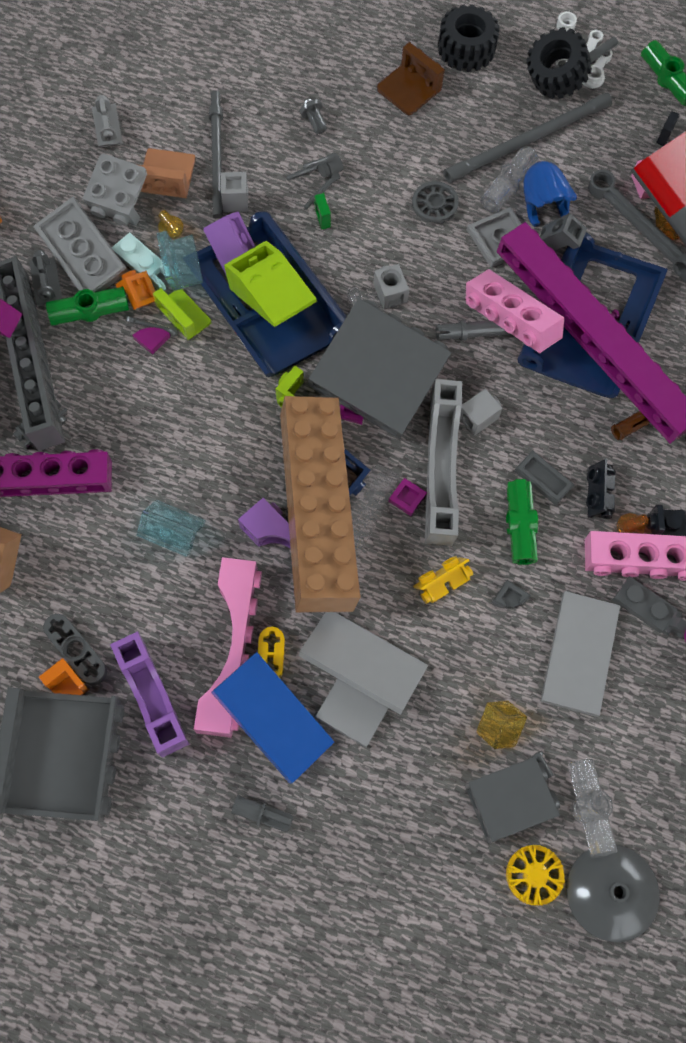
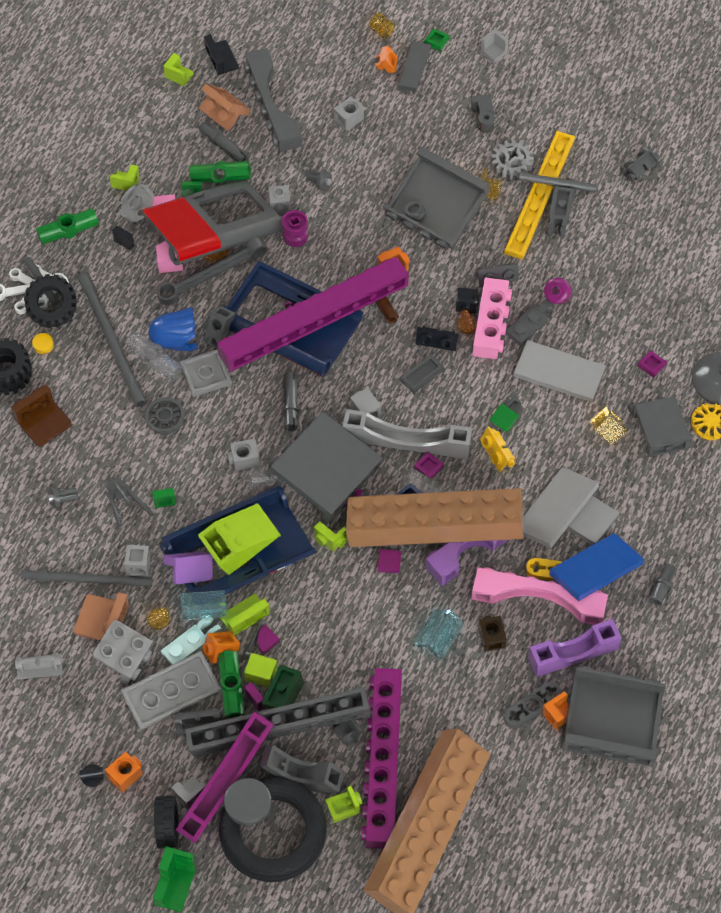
camera: 80 degrees left, 10 degrees down
(73, 331) = (254, 696): none -> magenta tile
(76, 358) = (283, 688): none -> dark green panel
(106, 334) = (260, 670): none -> lime brick
(159, 584) = (492, 641): none -> dark brown brick
(266, 462) = (389, 561): none -> magenta tile
(492, 584) = (504, 417): none -> green tile
(509, 74) = (42, 343): none -> yellow tile
(514, 310) = (276, 367): bright pink brick -> none
(522, 522) = (458, 391): green piece -> none
(592, 808) = (669, 378): clear piece -> none
(617, 782) = (652, 364): none -> magenta tile

